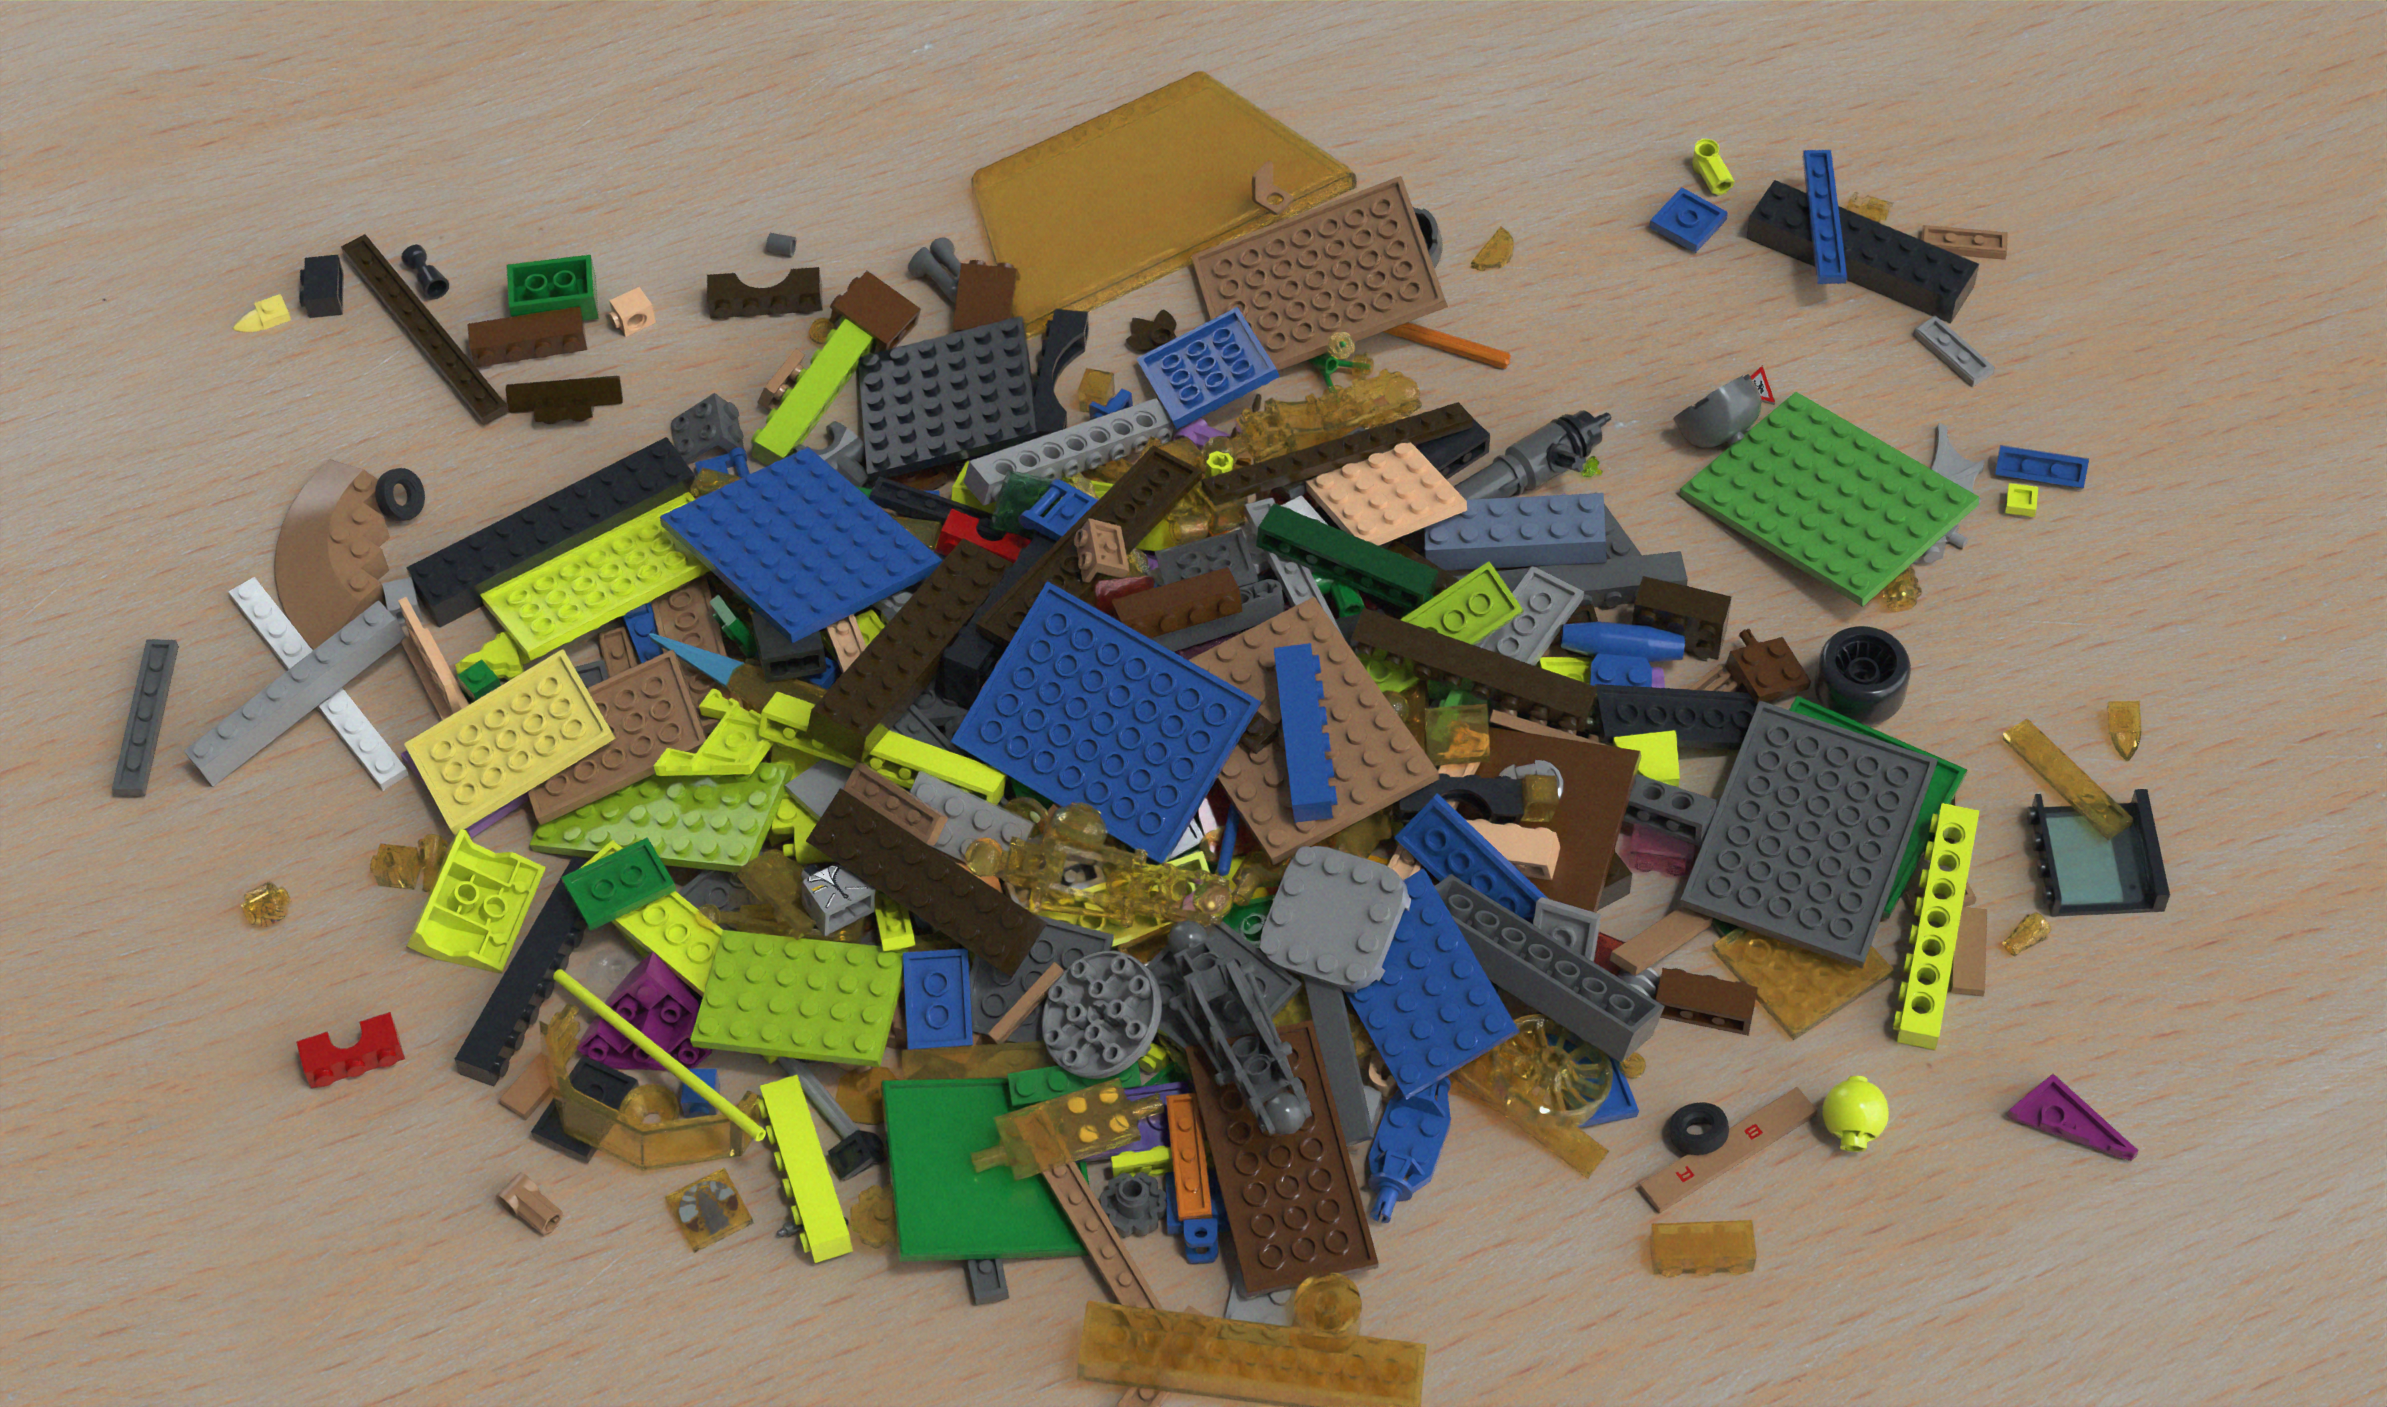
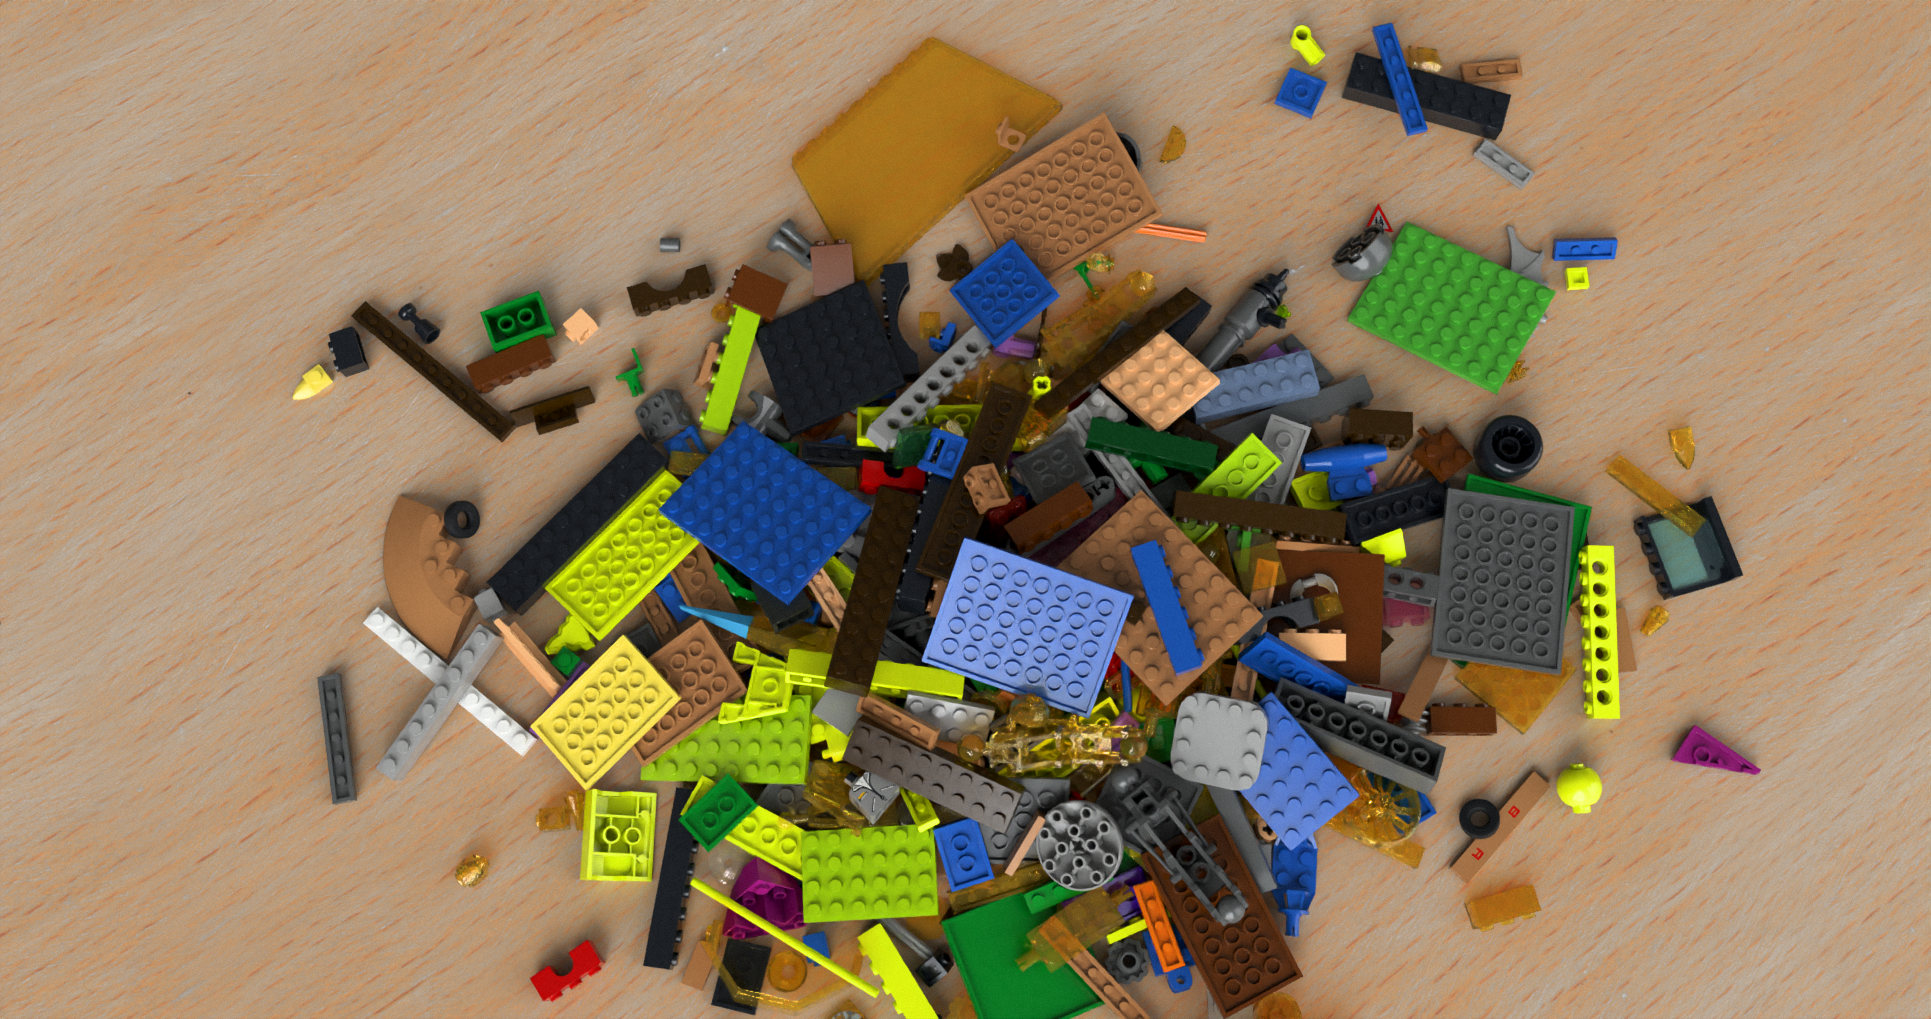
camera: 15 degrees left, 20 degrees up
(680, 379) = (632, 377): none -> green bracket

